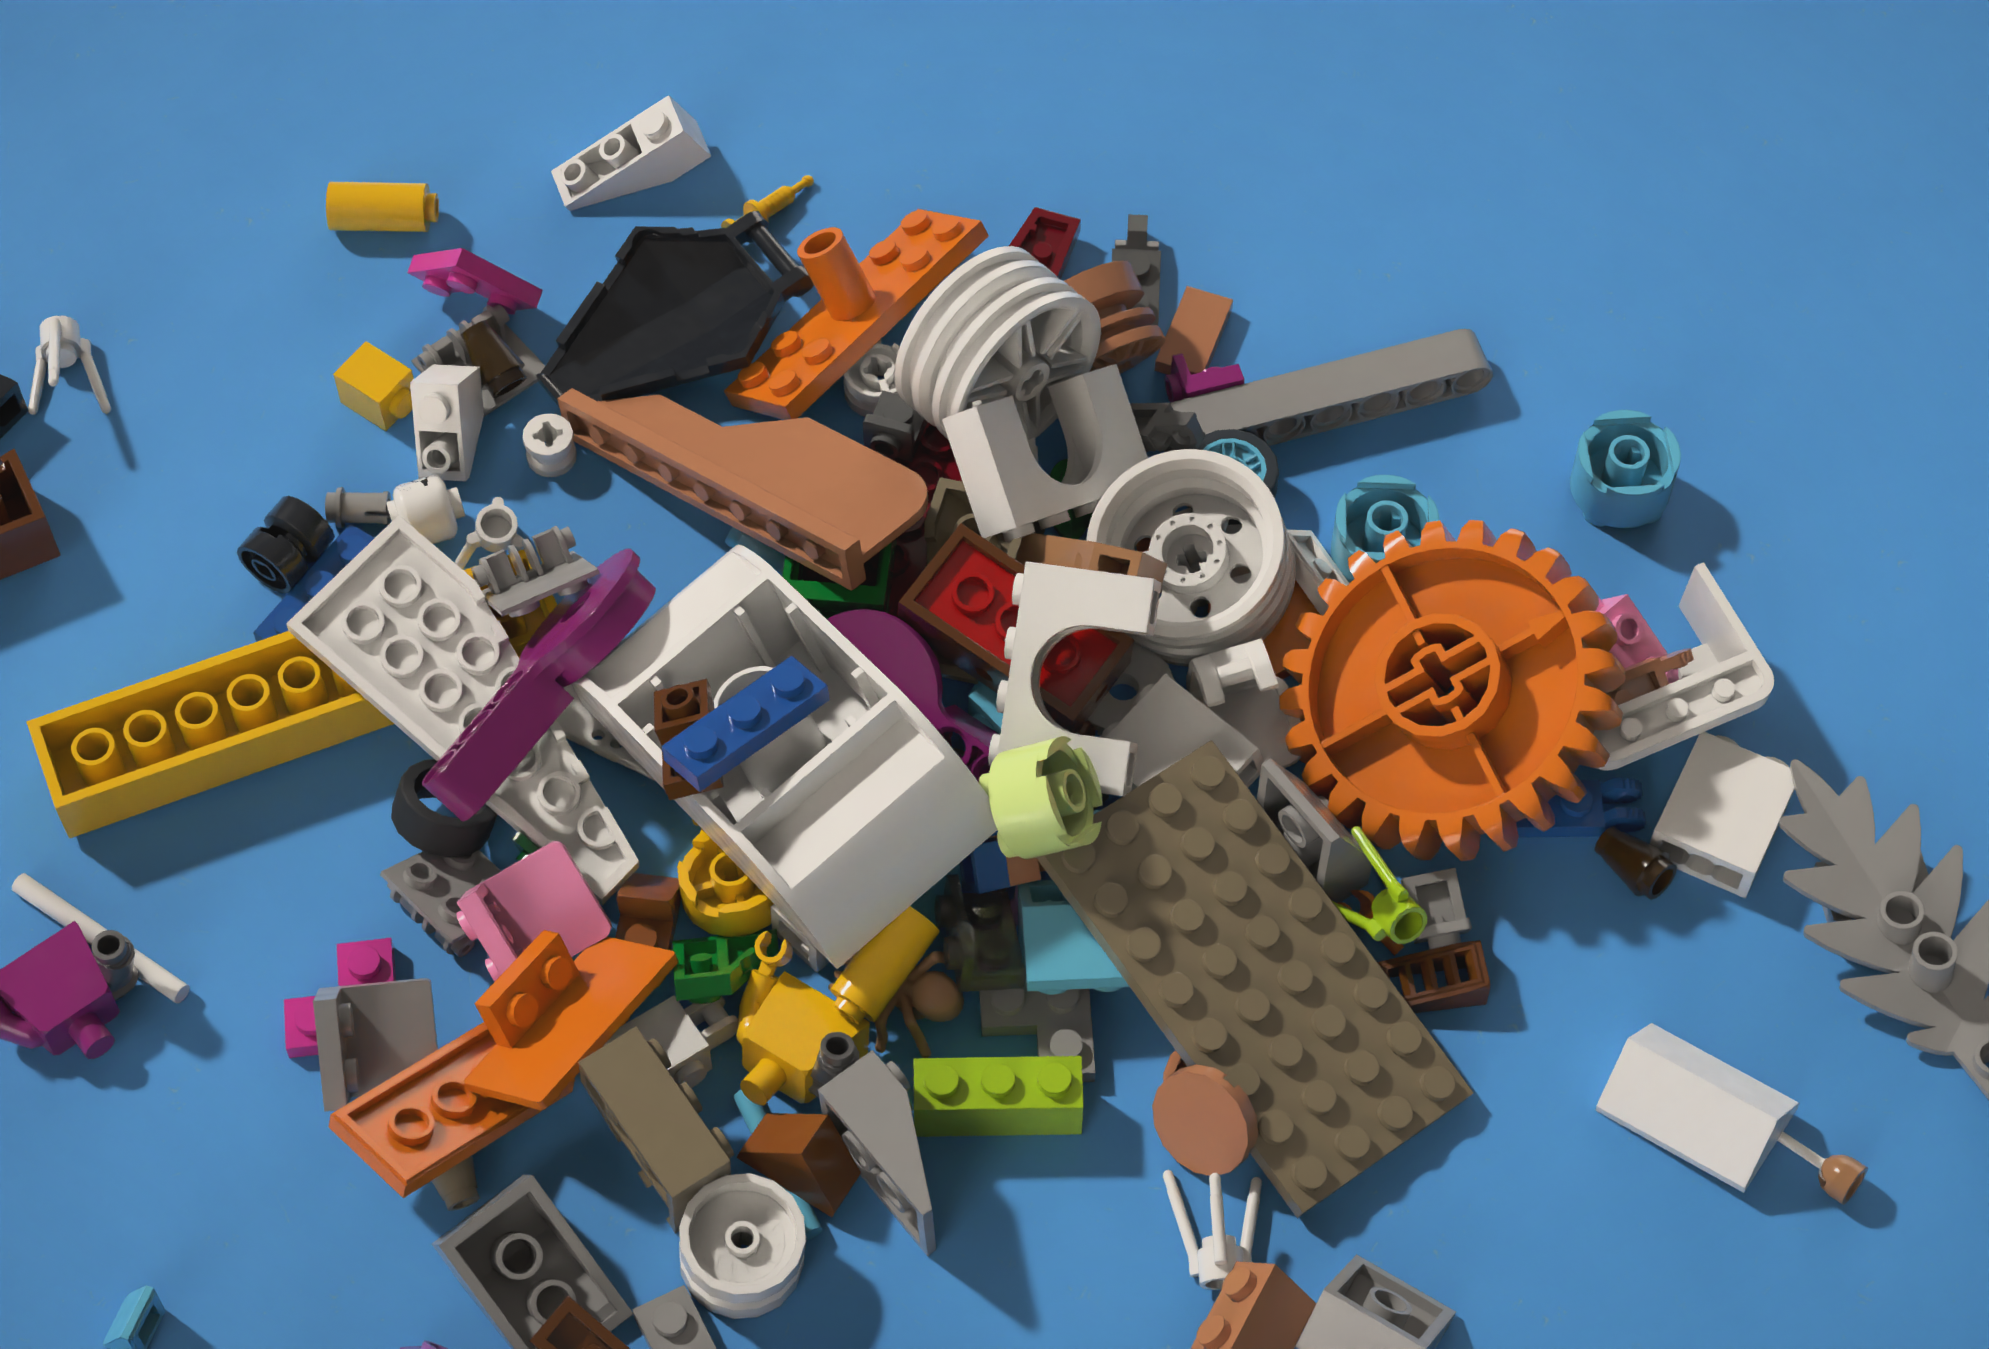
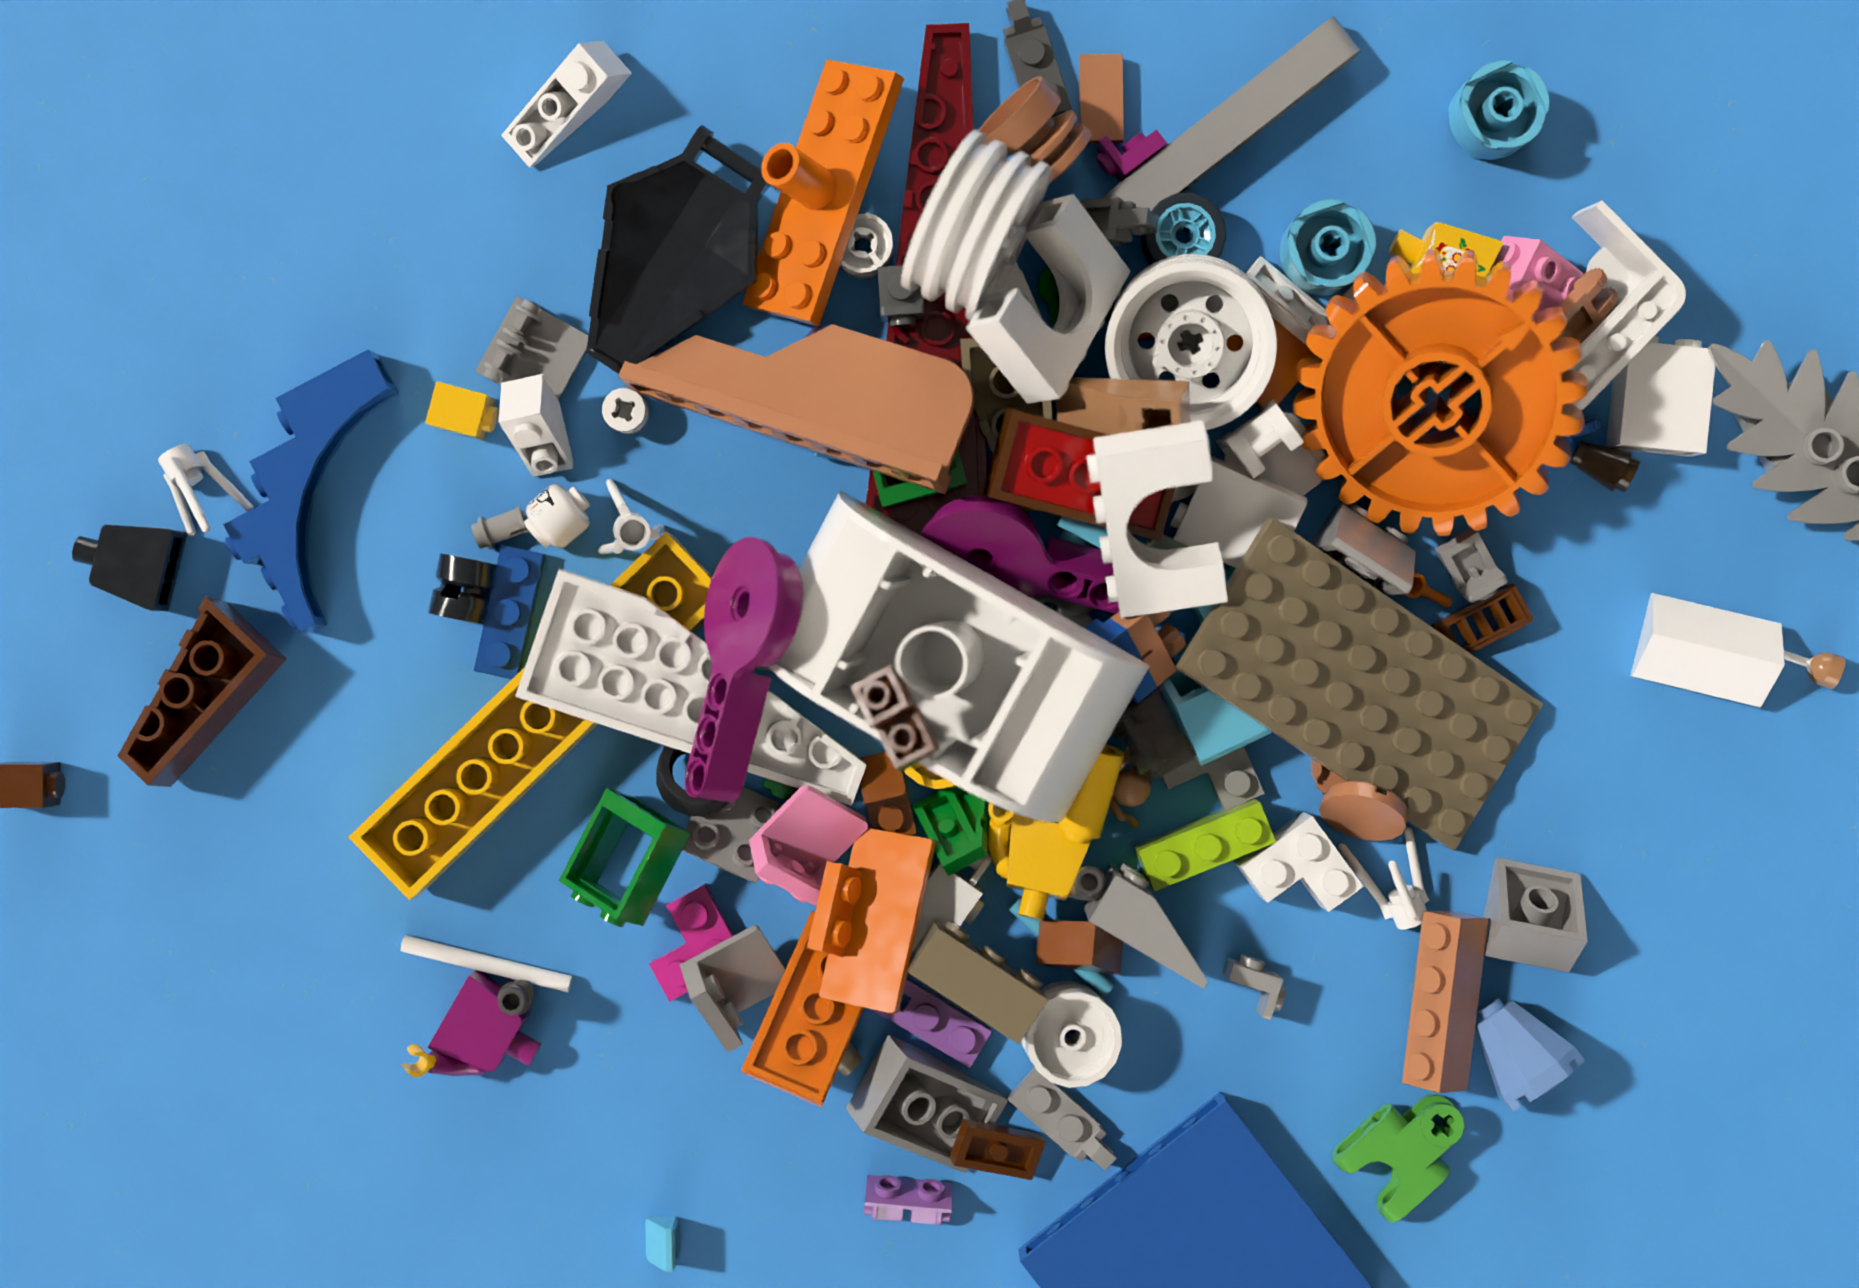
camera: 20 degrees left, 30 degrees up
(168, 382) = (277, 531): none -> blue arch
(316, 861) = (597, 846): none -> green window
(380, 206) = (378, 233): yellow brick -> none
(465, 272) = (492, 288): dark pink plate -> none
(498, 363) = (547, 357): dark brown cone -> none
(520, 594) = (691, 578): light grey hinge -> none
(584, 1186) = (940, 1024): none -> medium lavender plate
(745, 723) = (942, 701): blue plate -> none
(775, 201) = (695, 113): yellow piece -> none
(999, 1272) = (1252, 973): none -> light grey bracket
(1043, 798) = (1175, 640): yellowish green brick -> none
(1108, 1148) = (1304, 855): none -> white brick
(1393, 909) = (1452, 596): lime plant -> none

